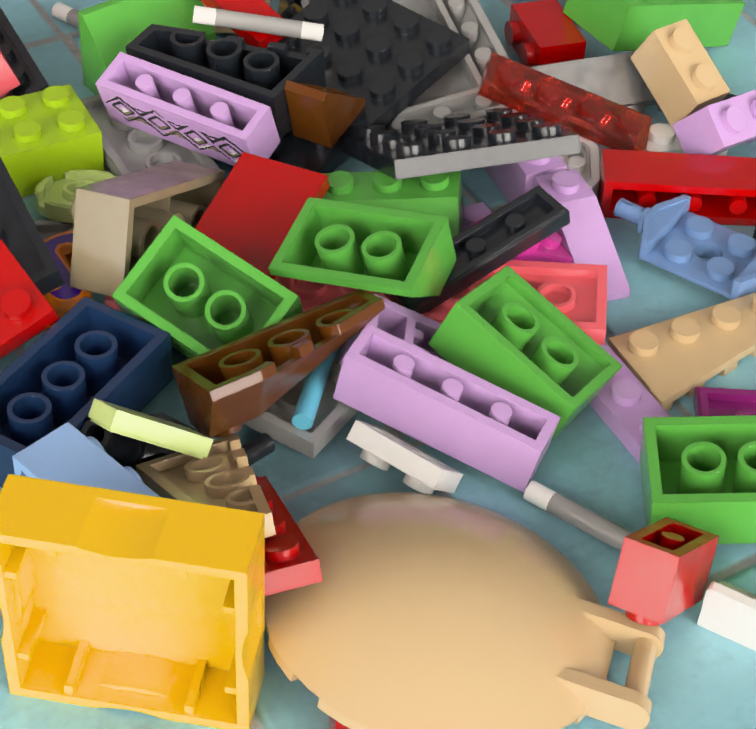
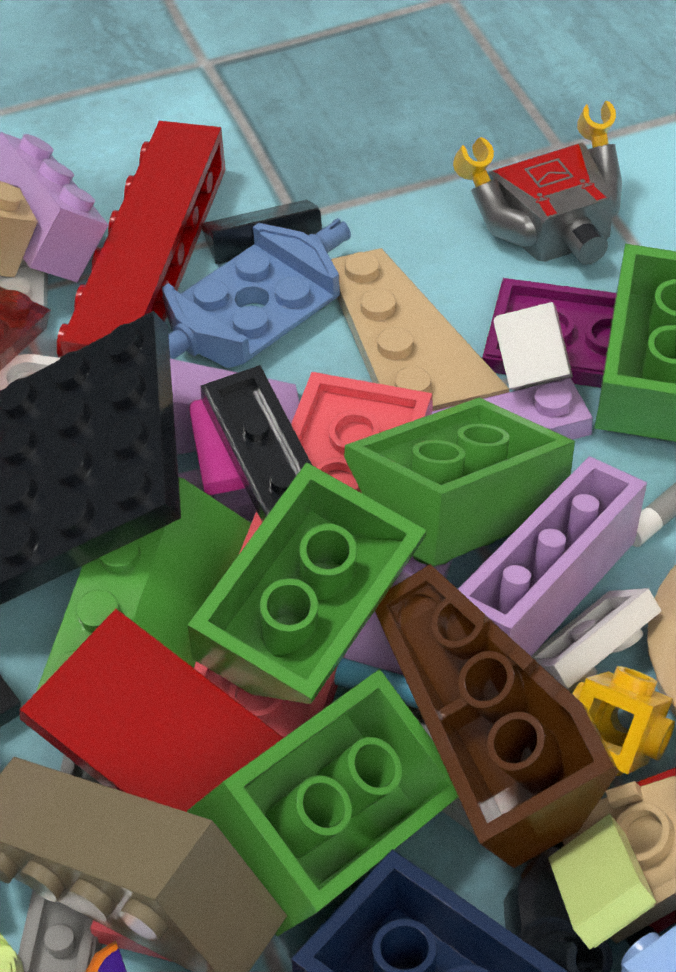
camera: 75 degrees left, 5 degrees up
(318, 464) = (634, 693): none -> yellow brick
(695, 390) = (532, 346): none -> white panel

